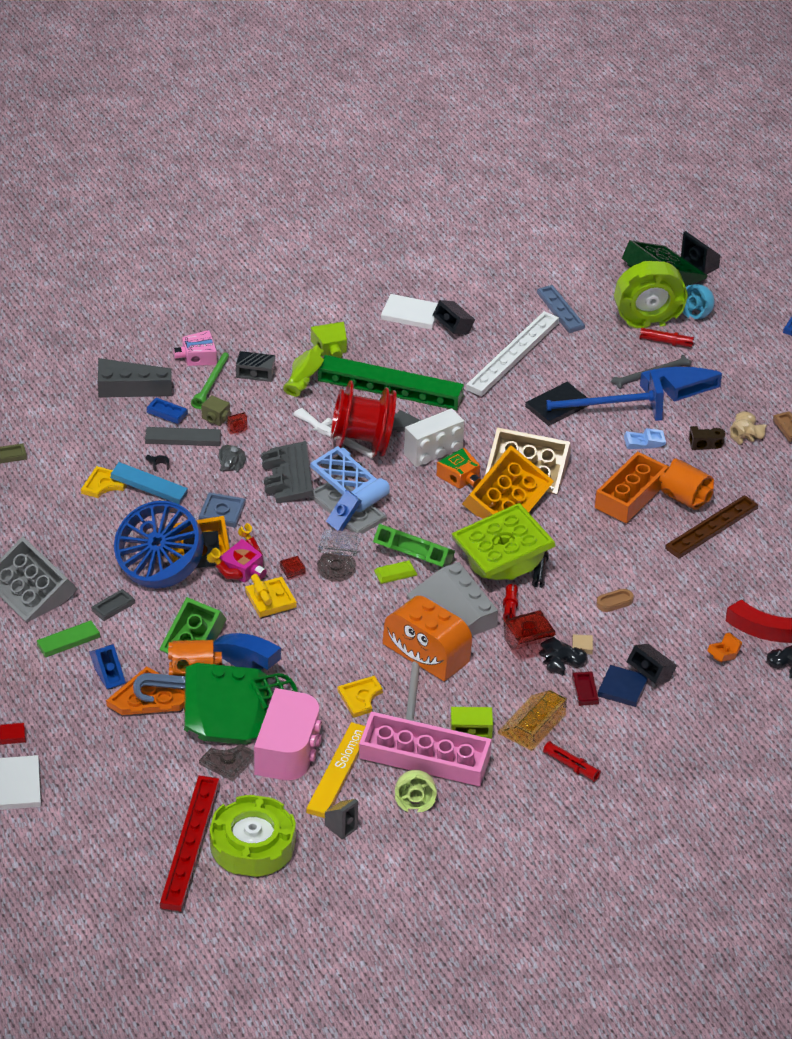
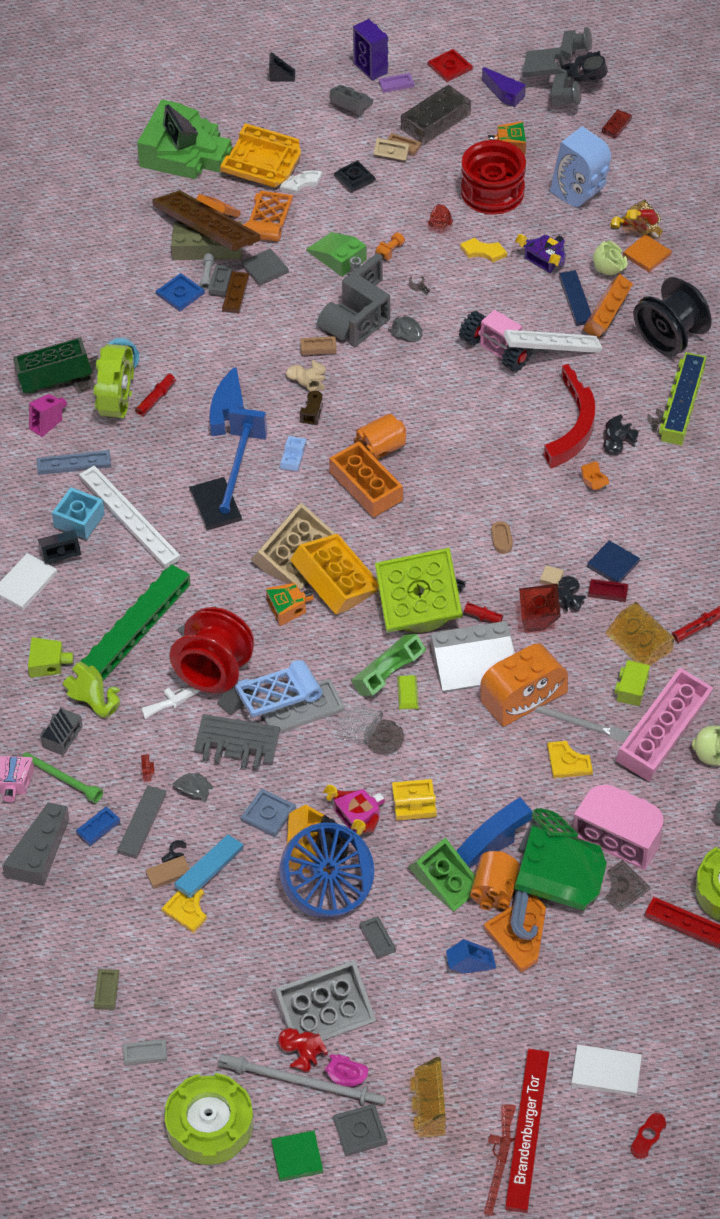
camera: 70 degrees left, 10 degrees up
(68, 638) = (415, 987): bright green tile -> none
(134, 459) = (167, 872): none -> medium nougat tile
(215, 410) = (119, 782): olive brick -> none
(292, 567) = (377, 771): clear red plate -> none
(337, 771) = (667, 804): yellow tile -> none
(343, 510) = (320, 707): plate -> none
(434, 437) = (244, 602): white brick -> none
(496, 318) = (78, 513): none -> medium azure brick
(601, 273) = (45, 414): none -> dark pink torso
(651, 663) = (600, 531): black brick -> none
(683, 361) = (202, 448): dark grey piece -> none
(699, 254) = (49, 332): black slope -> none
(711, 526) = (429, 441): reddish brown tile -> none

